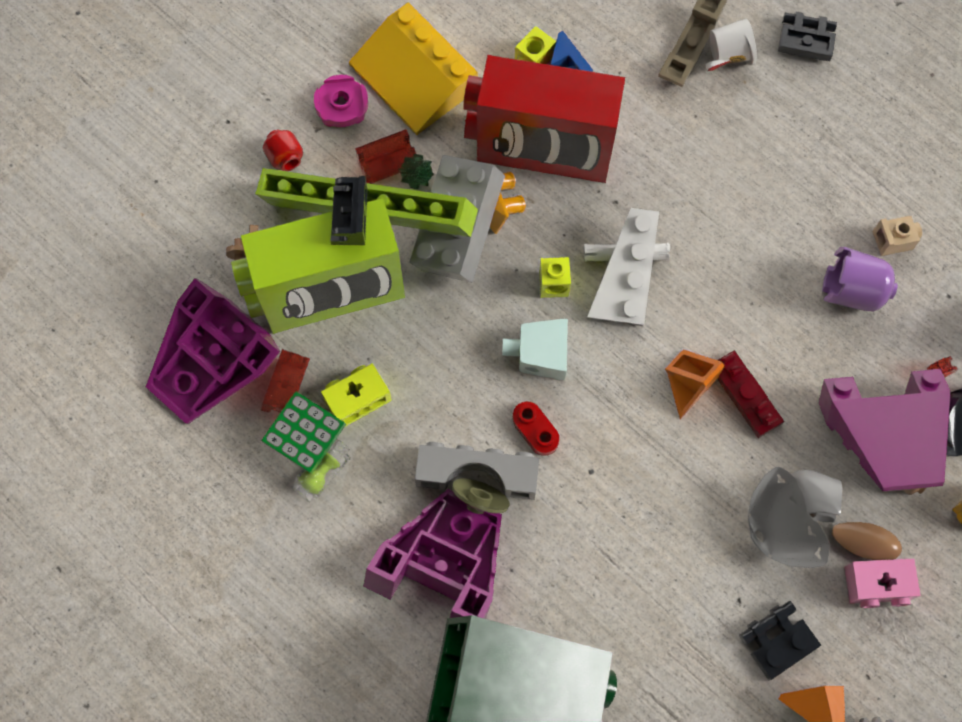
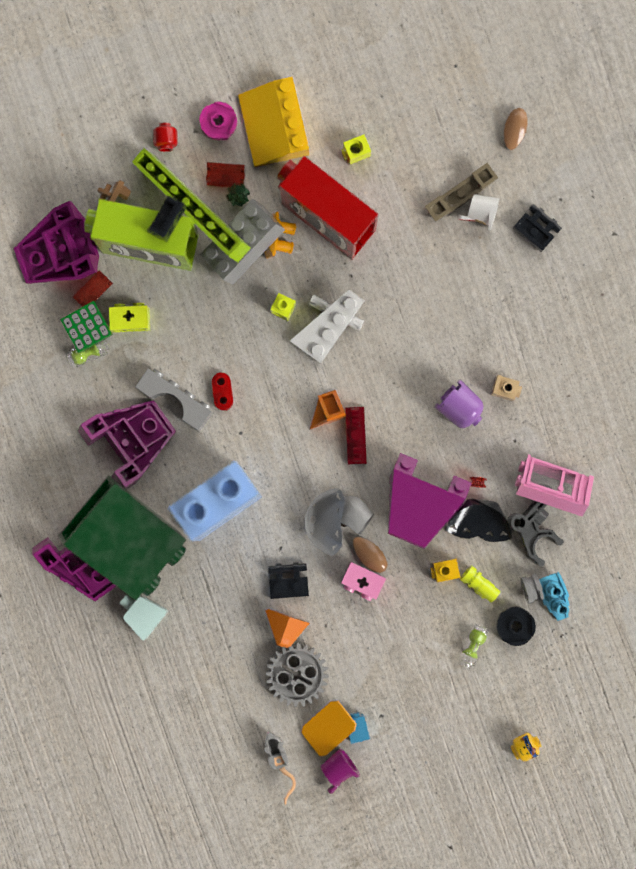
camera: 30 degrees right, 15 degrees up
(480, 496) = (167, 415): olive dish -> none
(541, 348) = (250, 346): light aqua torso -> none
(567, 54) = (373, 163): blue slope -> none
(630, 568) = (215, 502): none -> light blue brick

